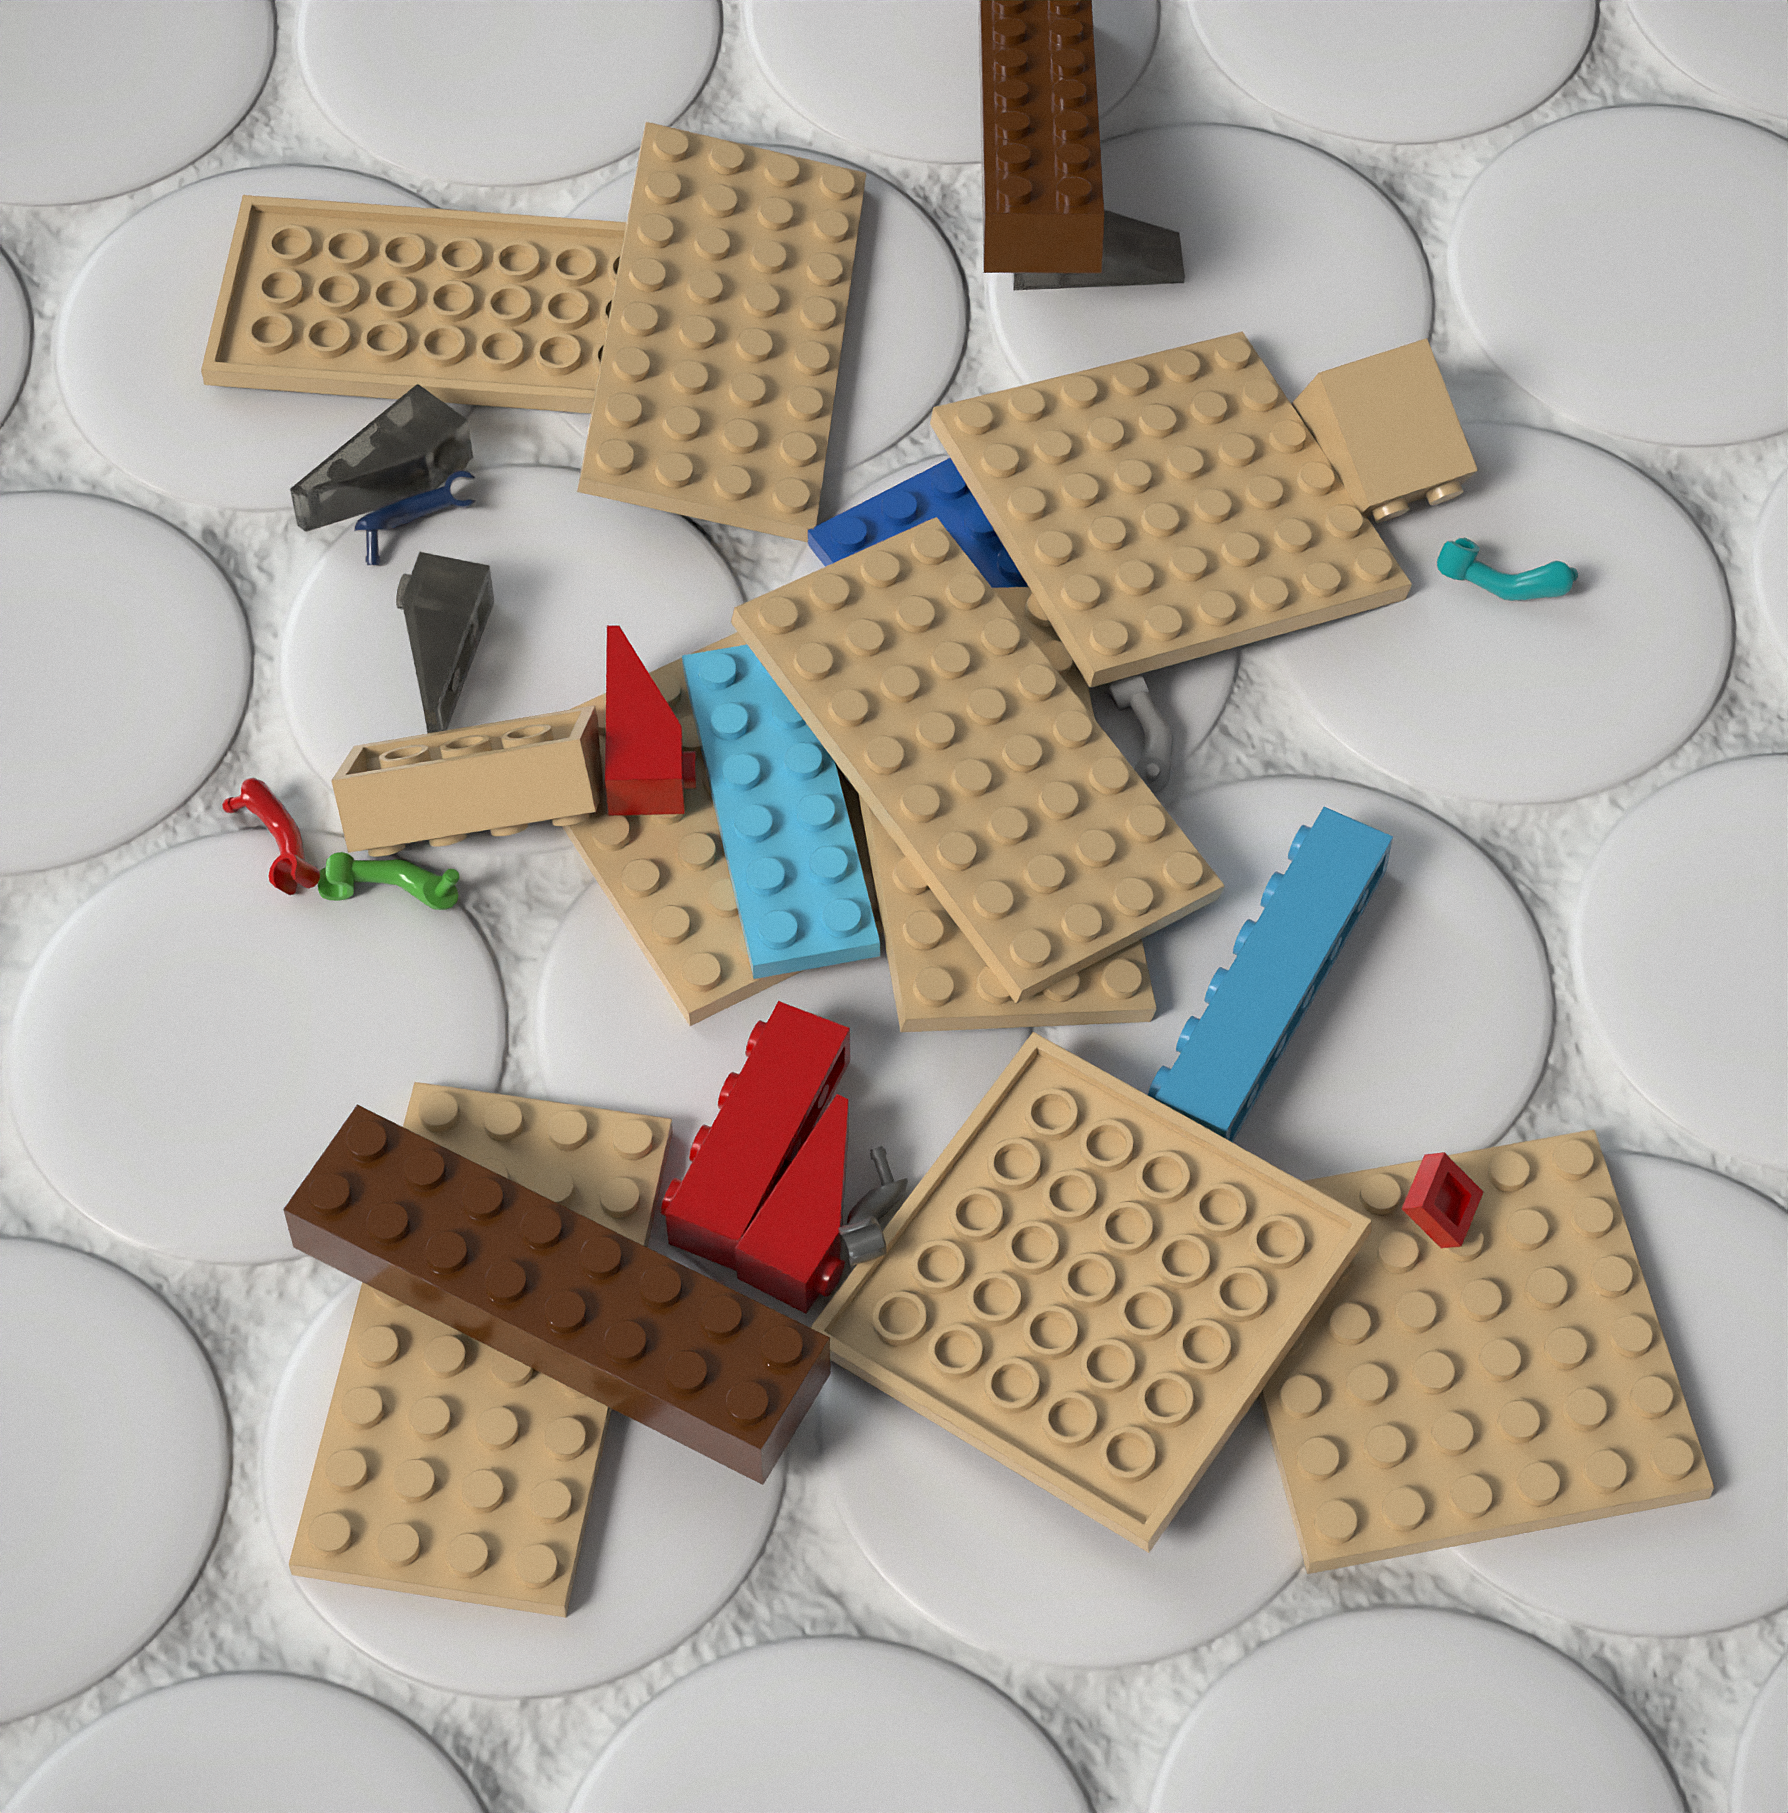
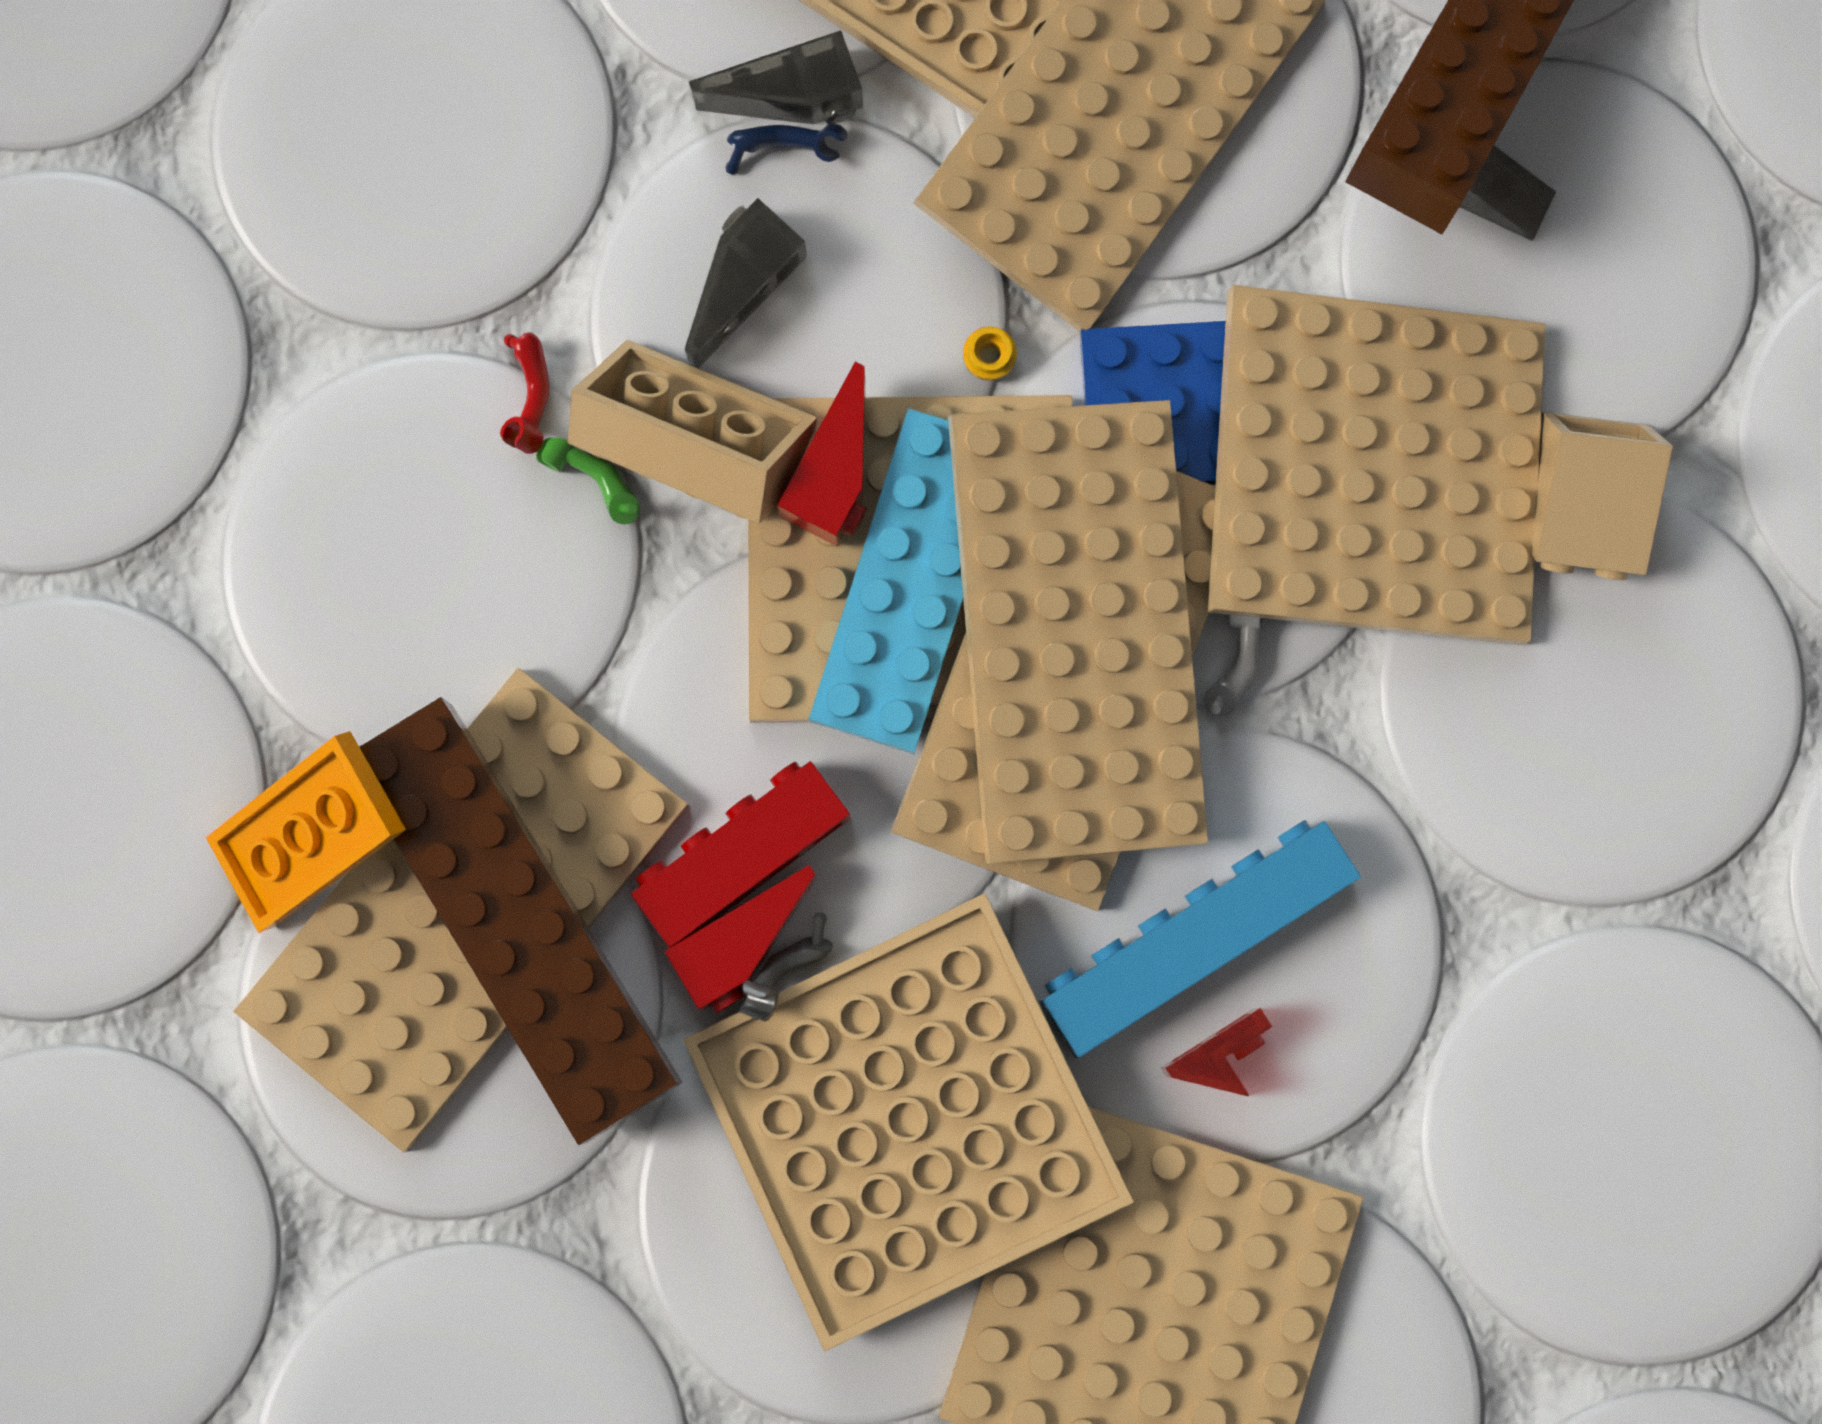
camera: 30 degrees right, 25 degrees up
(277, 1317) = (305, 832): none -> light orange plate
(725, 579) = (994, 338): none -> yellow plate
(1364, 1082) = (1206, 1061): none -> clear red slope
(1442, 1200) = (1201, 1208): red plate -> none
(1459, 562) = (1583, 642): teal piece -> none

